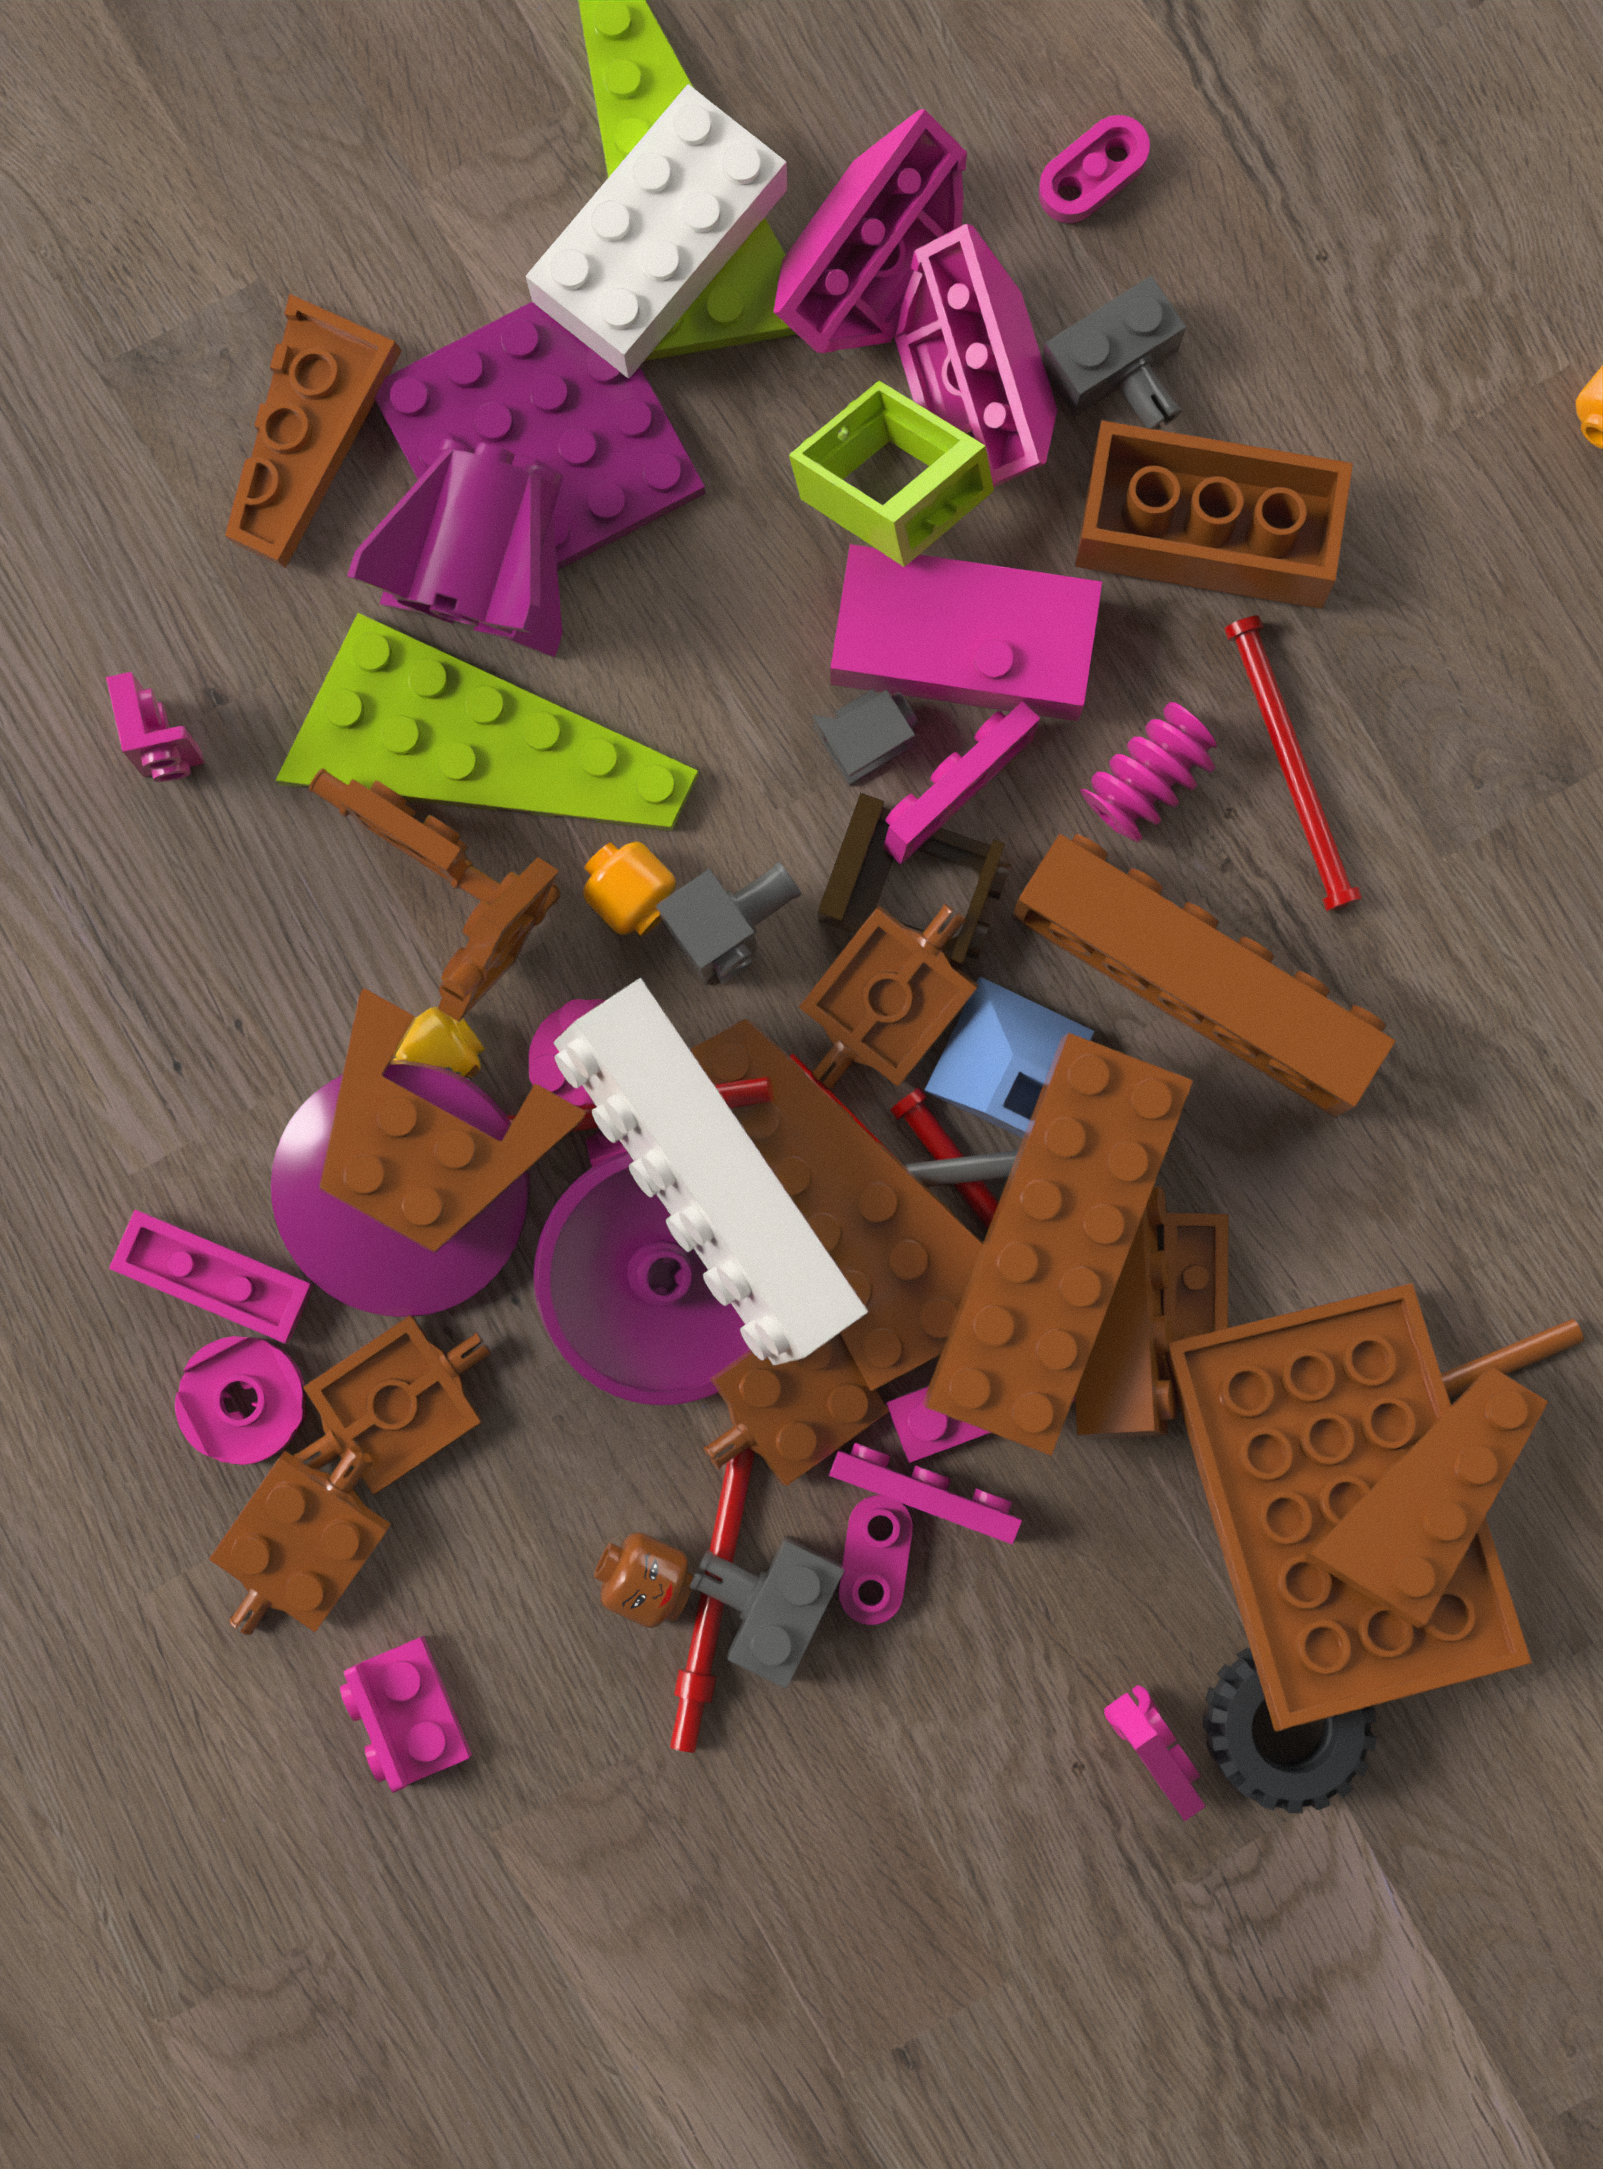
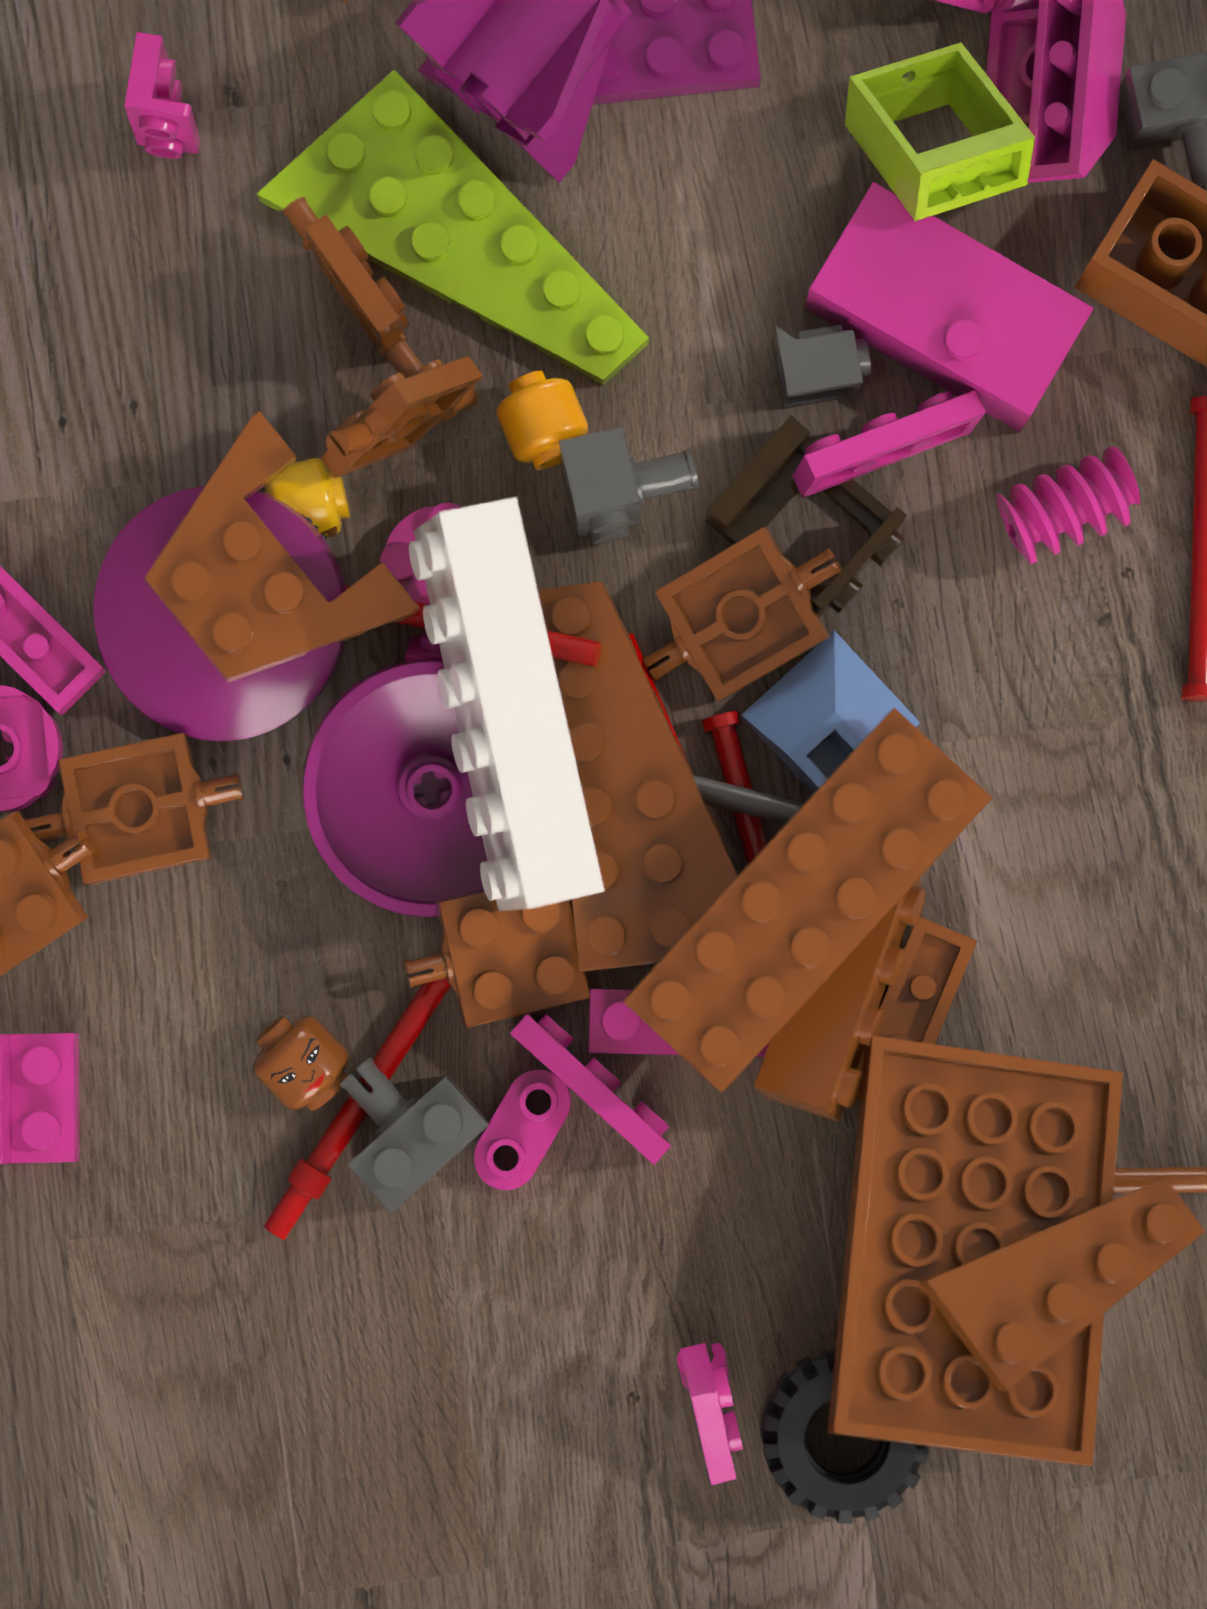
camera: 15 degrees right, 0 degrees up
(1203, 976) = (1041, 708): dark orange brick -> none

